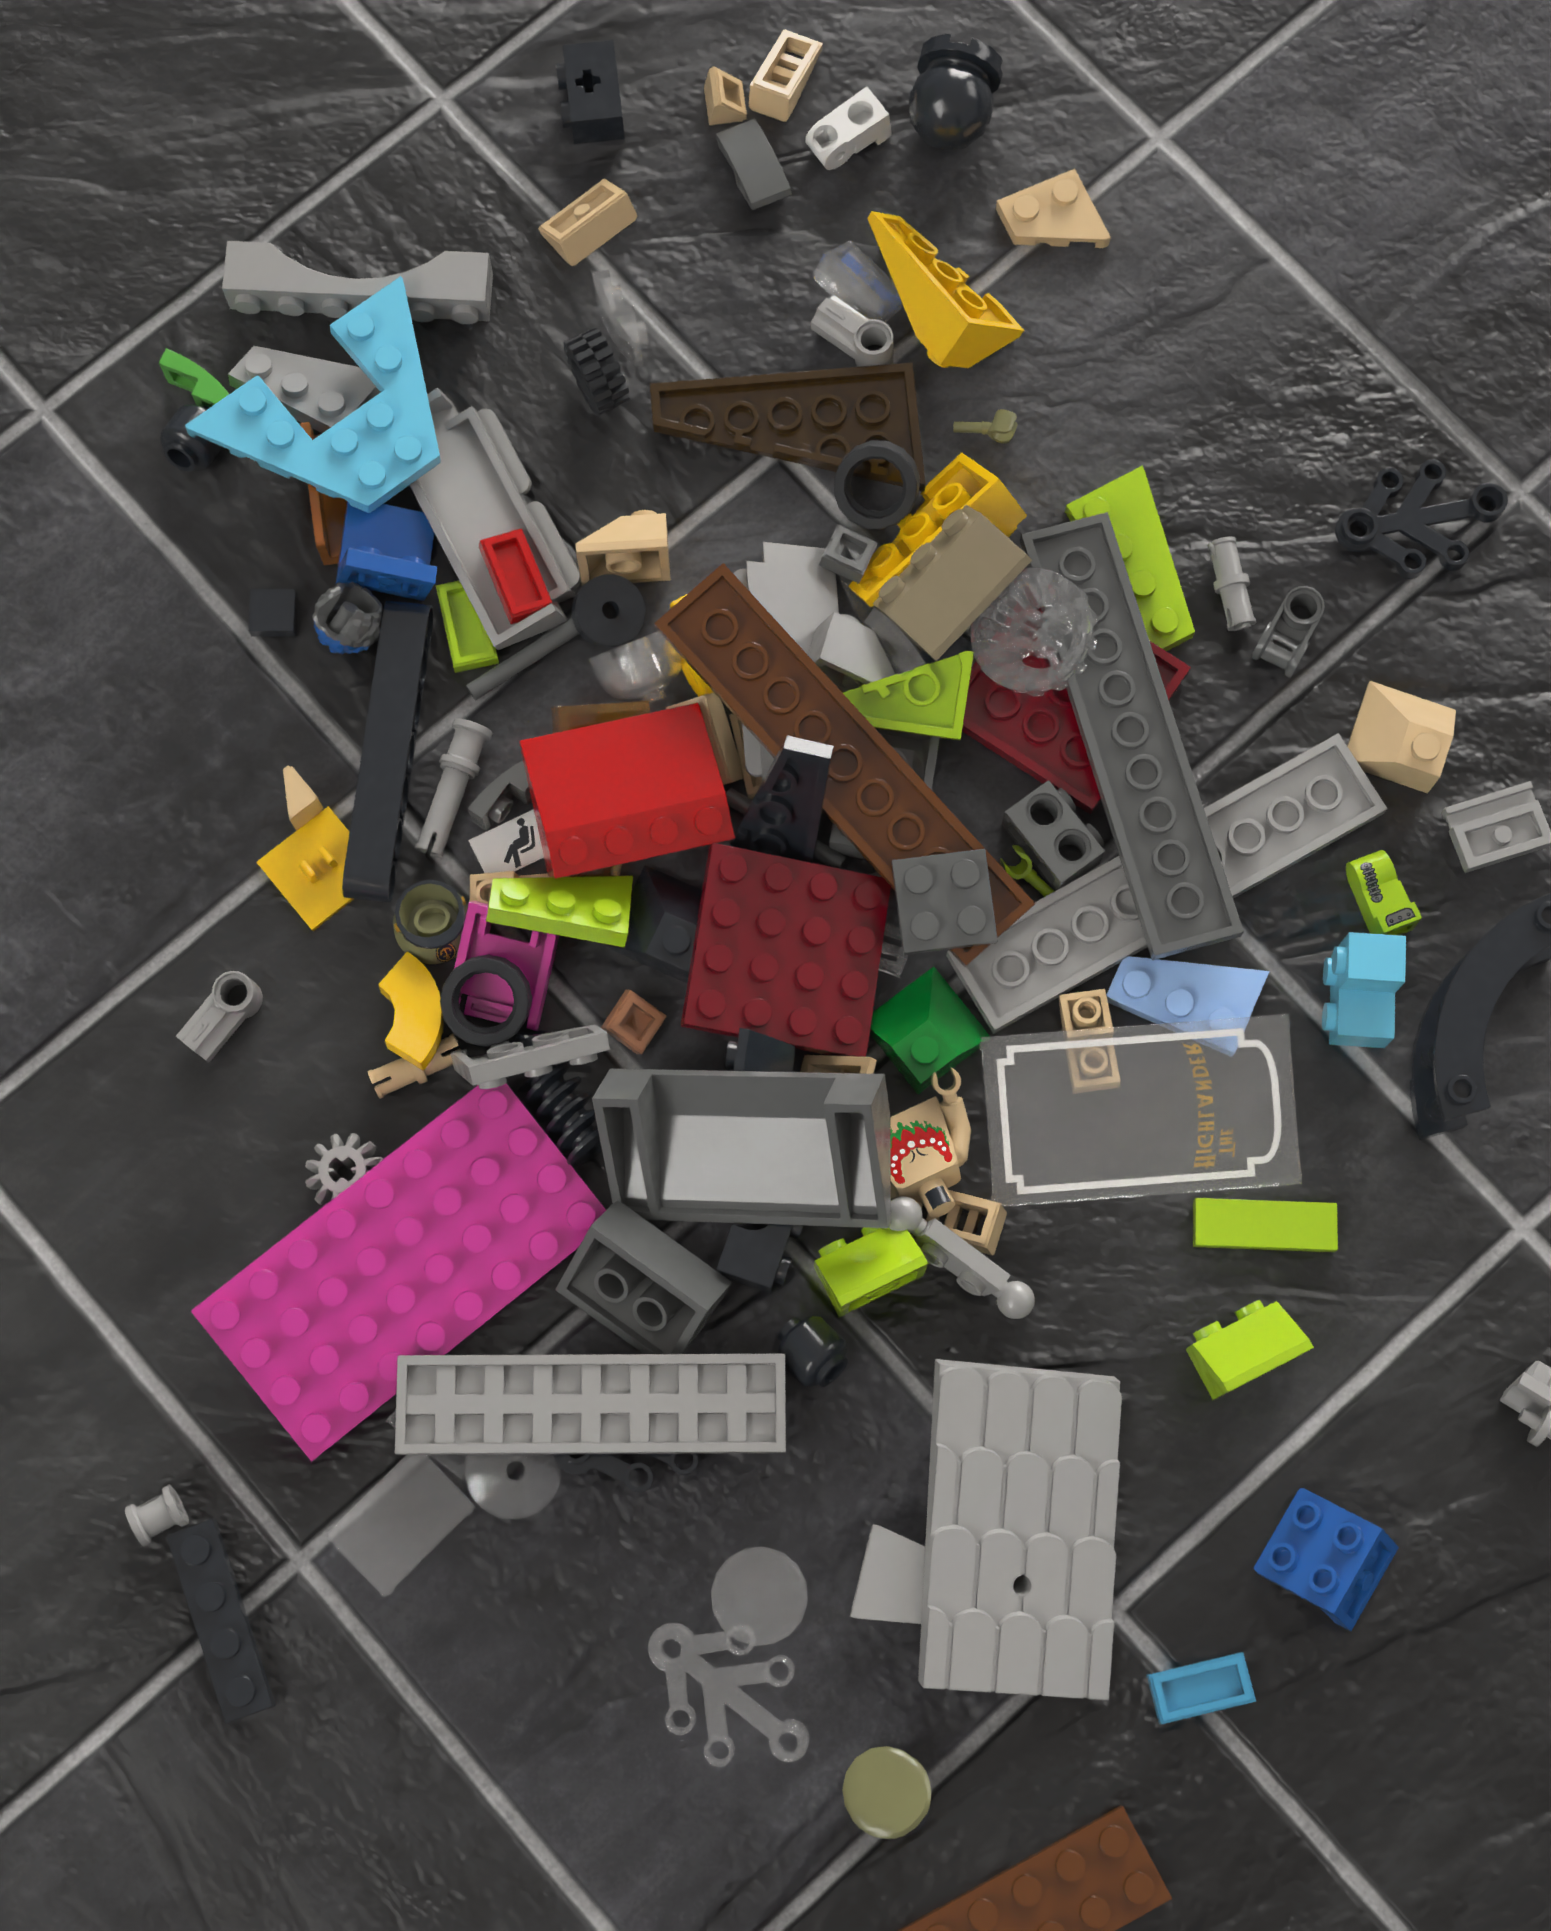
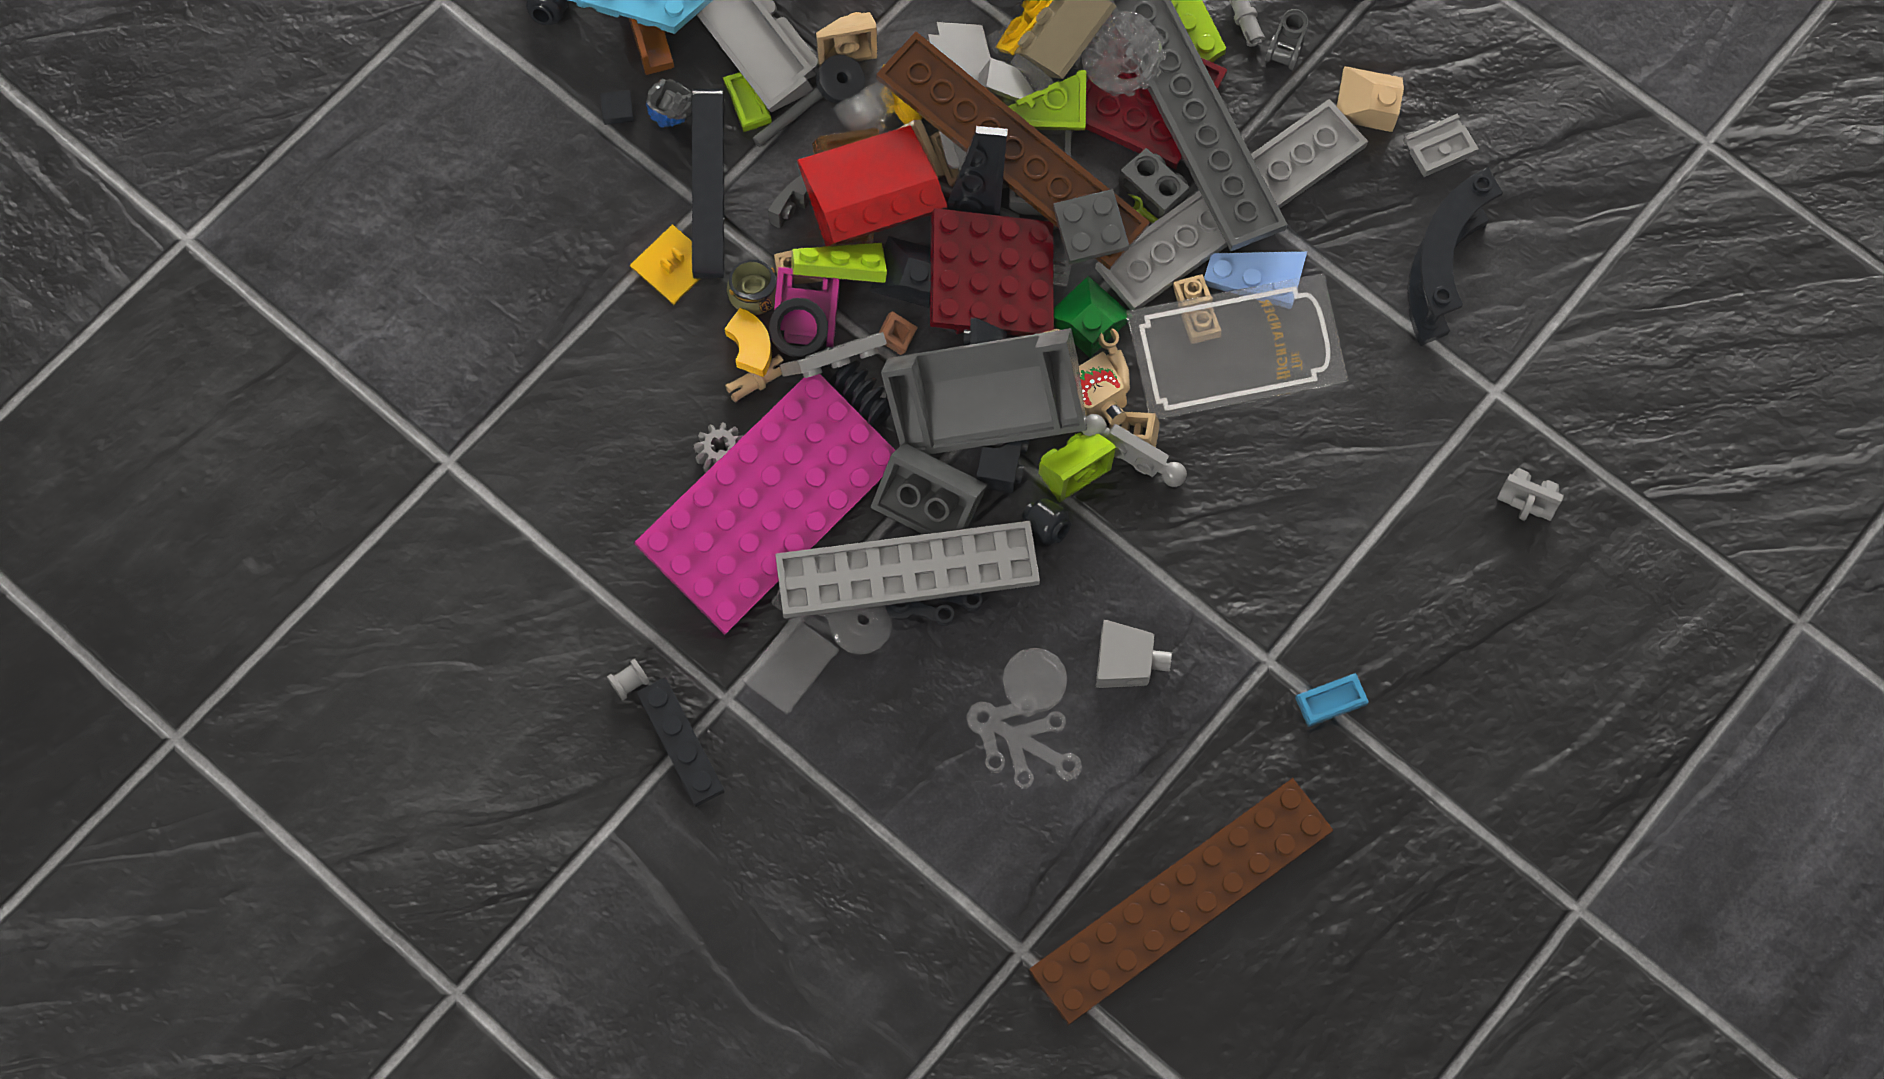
camera: 10 degrees left, 5 degrees down
(216, 1019) = (620, 362): light grey piece -> none
(301, 800) = (656, 219): tan slope -> none
(387, 551) = (689, 58): blue bracket -> none
(458, 768) = (756, 188): light grey pin -> none
(509, 845) = (798, 233): white sticker -> none
(515, 574) = (775, 62): red tile -> none
(848, 553) = (992, 25): dark grey tile -> none
(887, 1793) = (1139, 789): olive piece -> none
(1020, 1531) = (1196, 588): light grey piece -> none
(1247, 1348) = (1329, 484): lime slope -> none
(1265, 1225) = (1328, 409): lime tile -> none
(1327, 1557) = (1402, 606): blue bracket -> none
(1363, 986) = (1369, 251): medium azure brick -> none
(1381, 895) = (1372, 197): lime leg -> none

